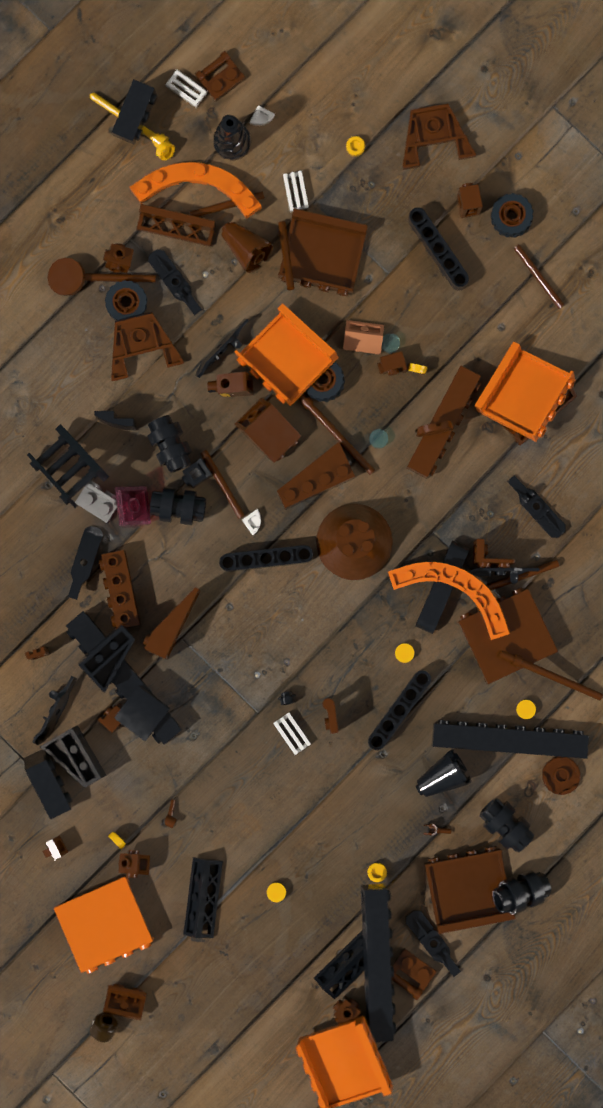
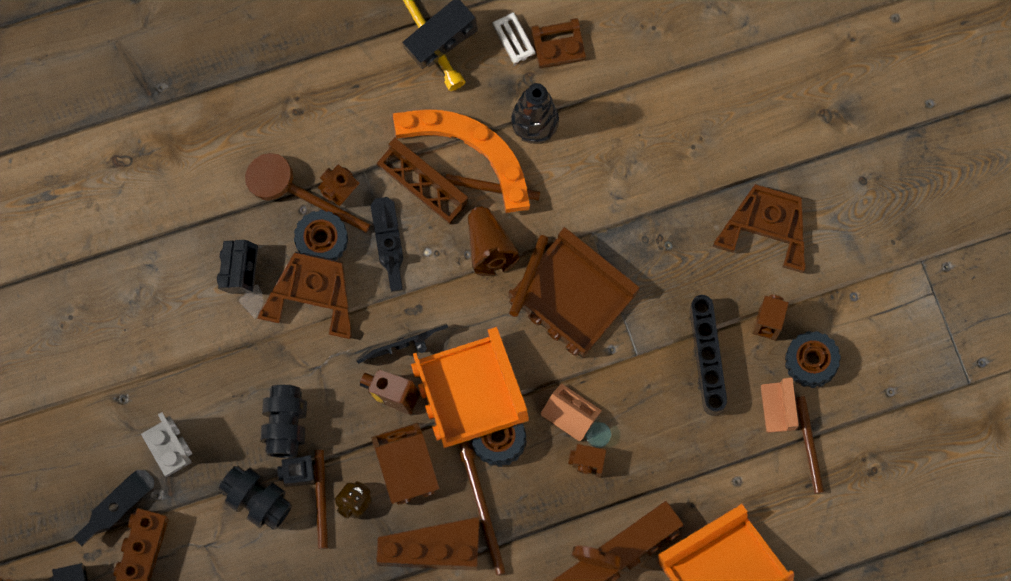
camera: 25 degrees right, 10 degrees down
(74, 450) = (174, 390): black fence -> none
(79, 352) = (237, 266): none -> black brick
(102, 371) = (253, 301): none -> clear tile
(110, 418) = (234, 362): black slope -> none
(132, 506) = (202, 471): clear pink slope -> none
(165, 150) = (454, 93): yellow tile -> none
(245, 473) = (353, 500): none -> dark brown head
(253, 522) = (333, 560): white tile -> none
(261, 117) = (582, 110): white tile -> none
(292, 175) = (583, 191): white tile -> none
(355, 146) = (671, 194): yellow tile -> none
(378, 438) = (528, 538): clear light blue tile -> none
(417, 368) = (614, 479): yellow tile -> none
(505, 260) = (779, 406): none -> nougat panel

